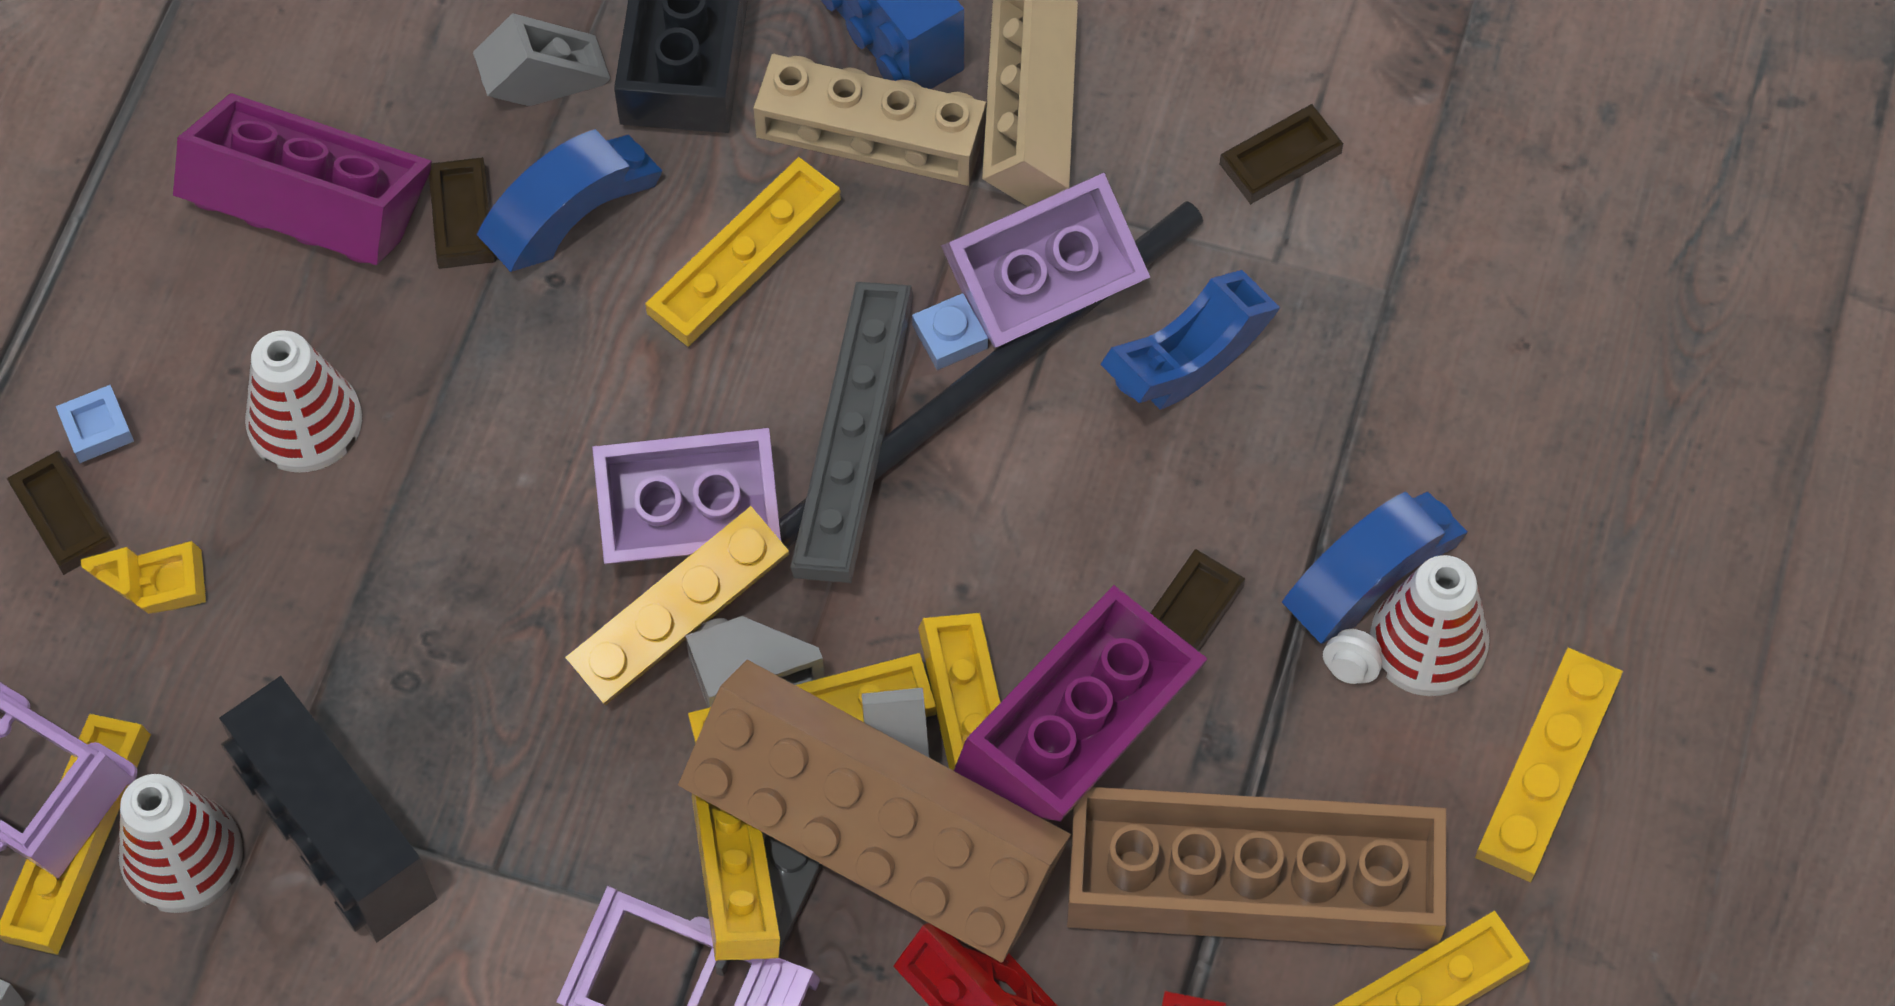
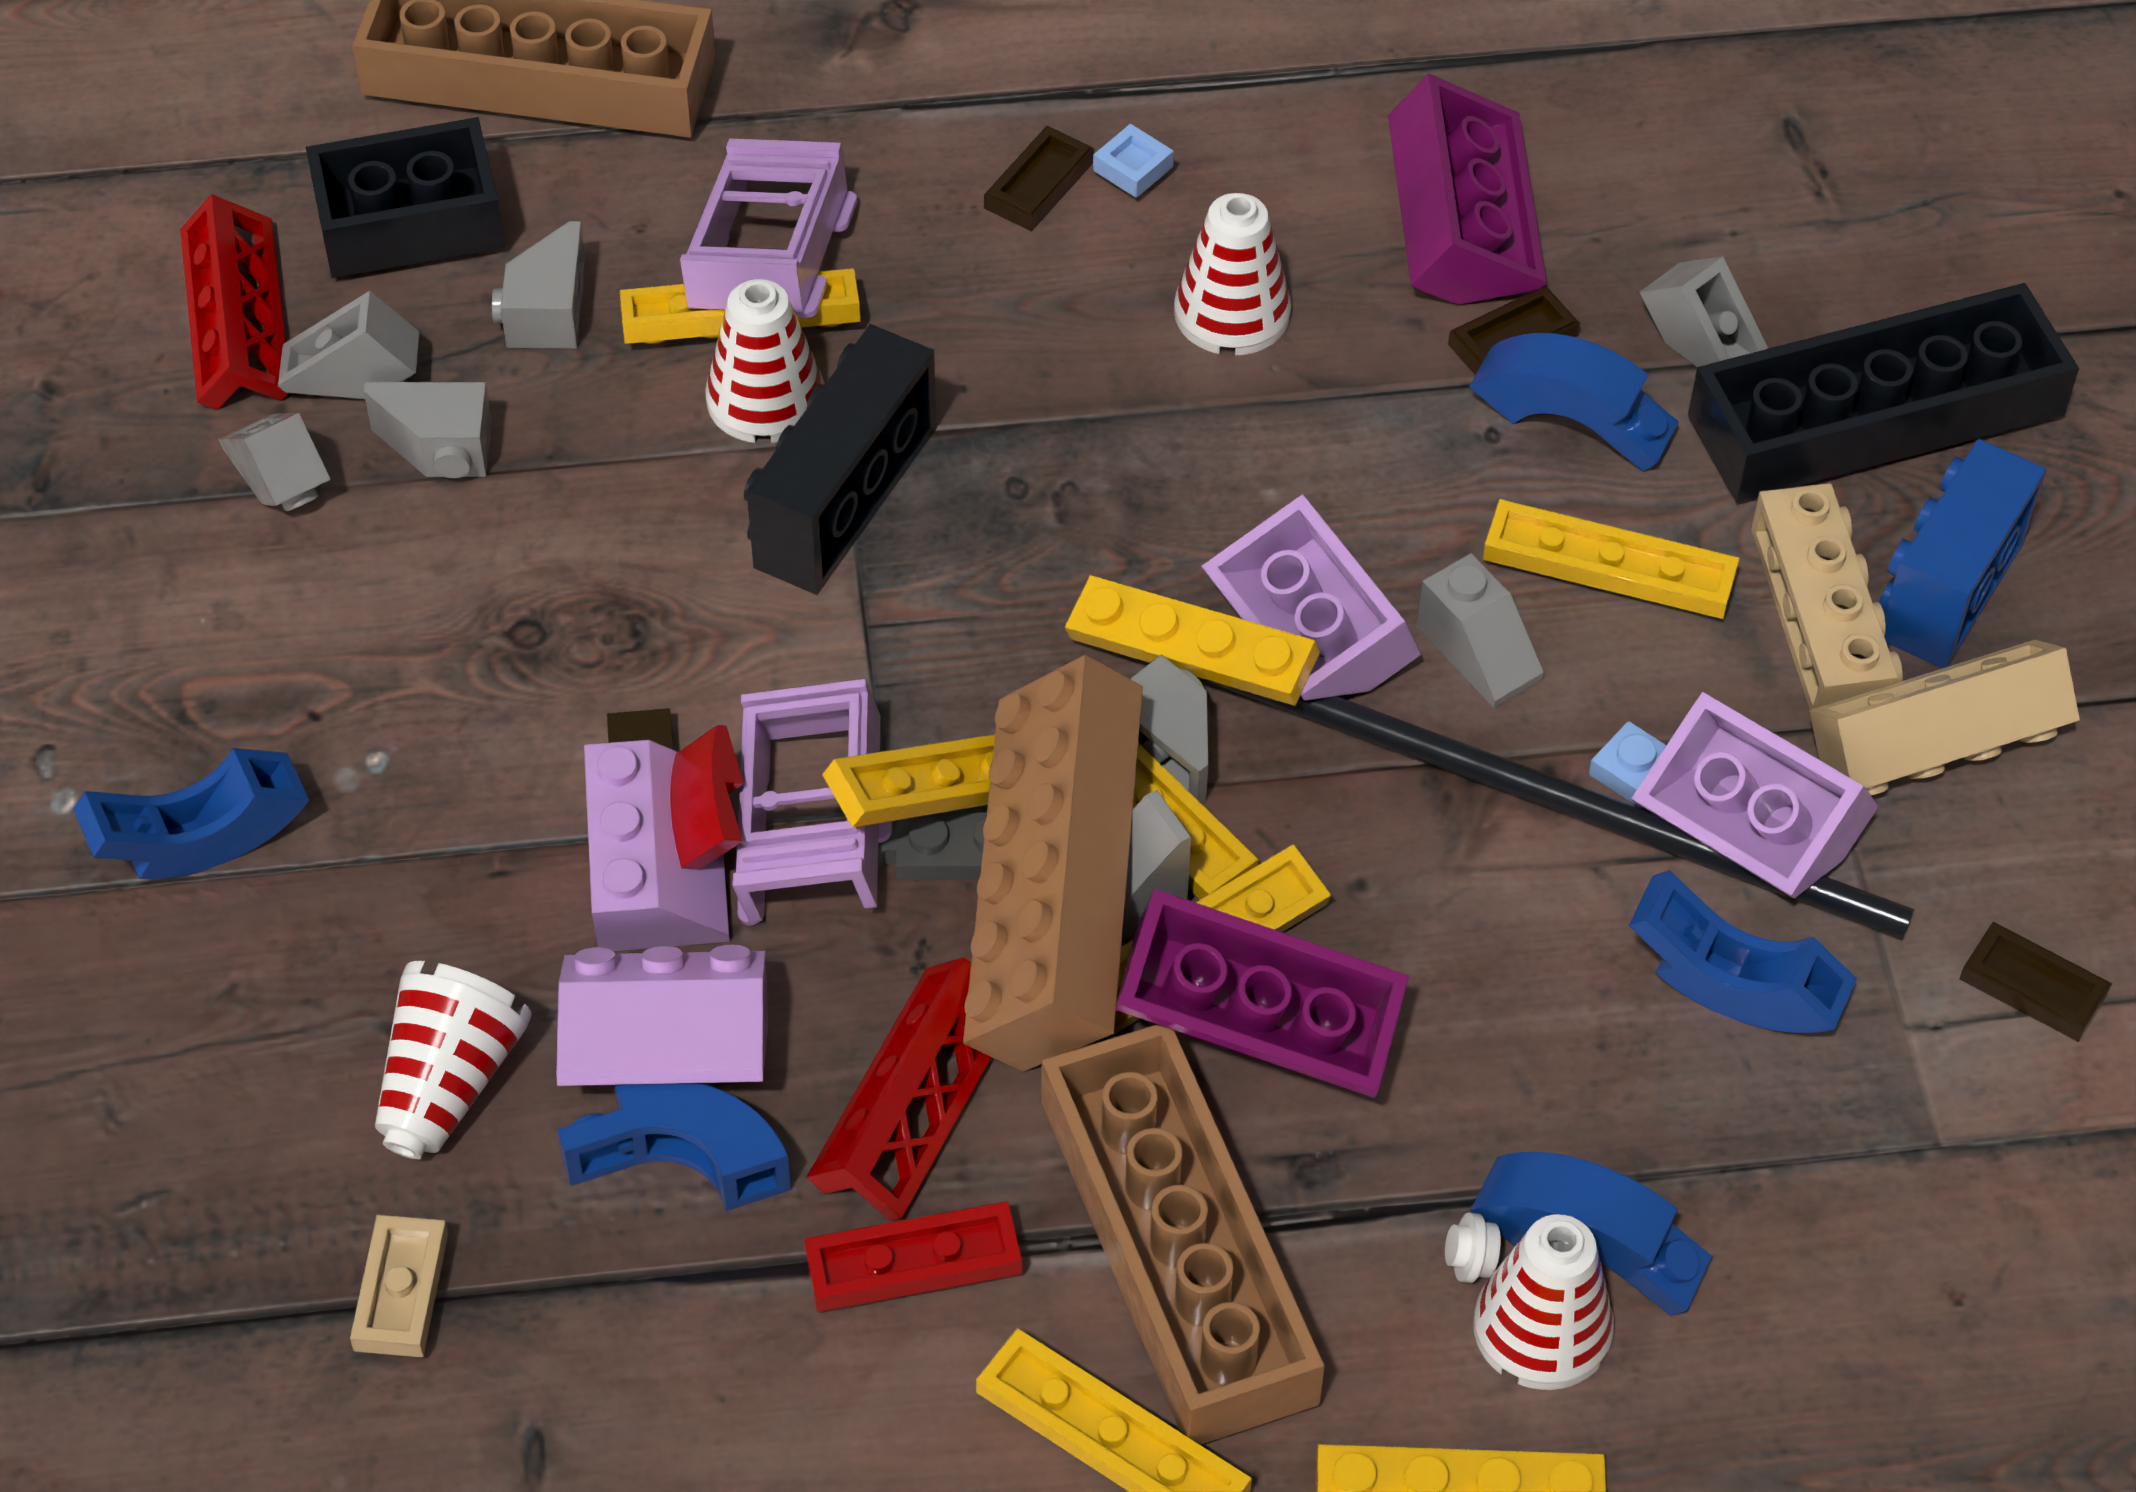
camera: 65 degrees right, 10 degrees down
(153, 580) = (1010, 266): yellow slope -> none
(769, 381) = (1478, 630): none -> light grey slope
(852, 433) = (1466, 715): dark grey tile -> none
(1198, 598) = (1446, 1087): dark brown tile -> none

